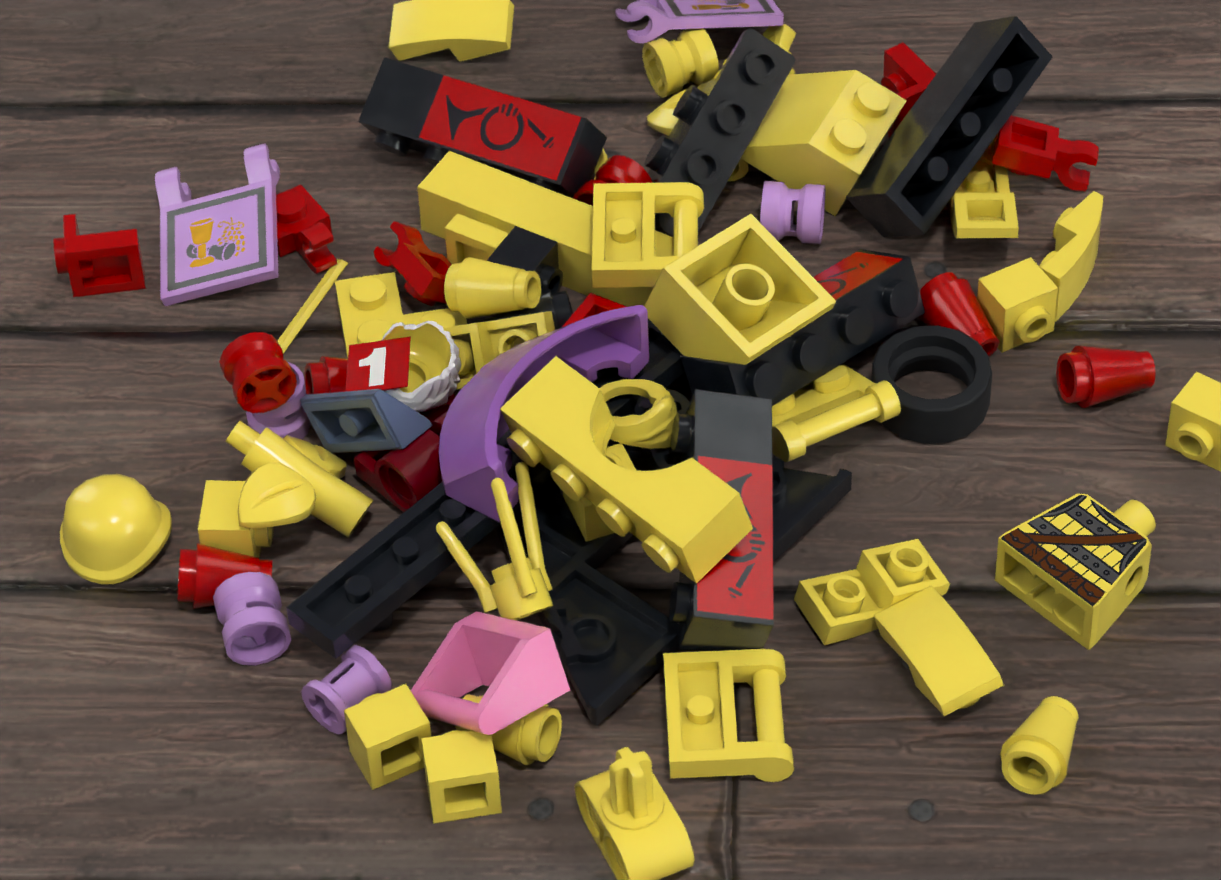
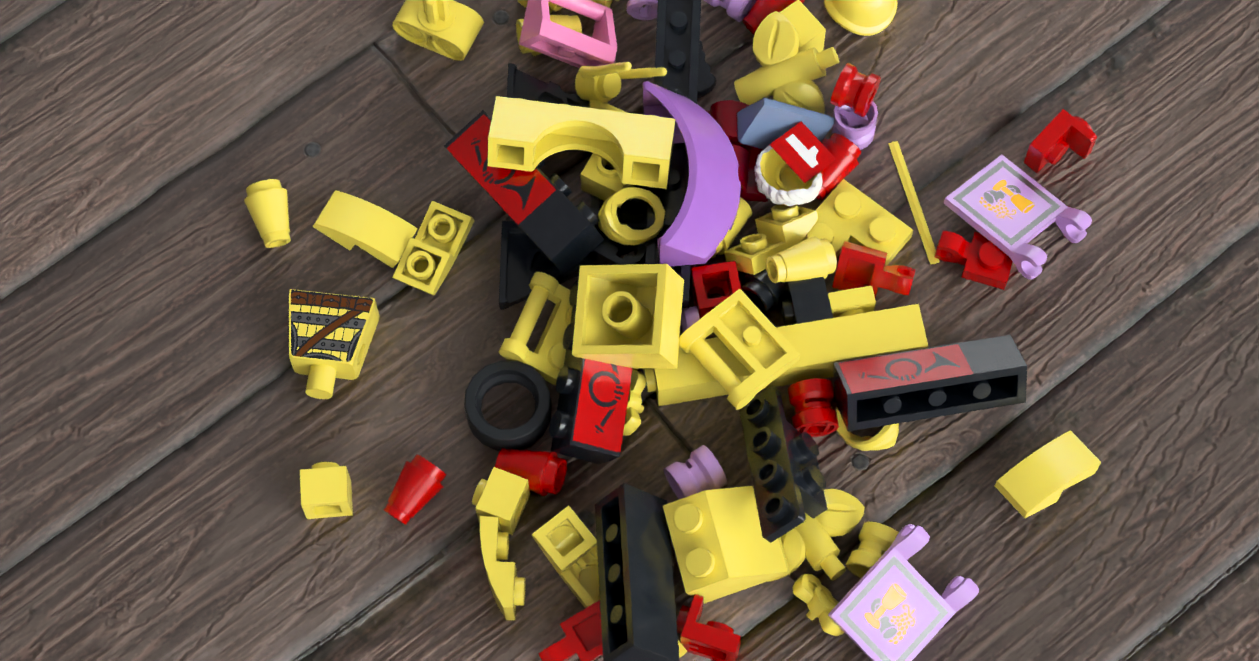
camera: 140 degrees right, 20 degrees up
(704, 715) = (449, 101): light yellow plate -> none

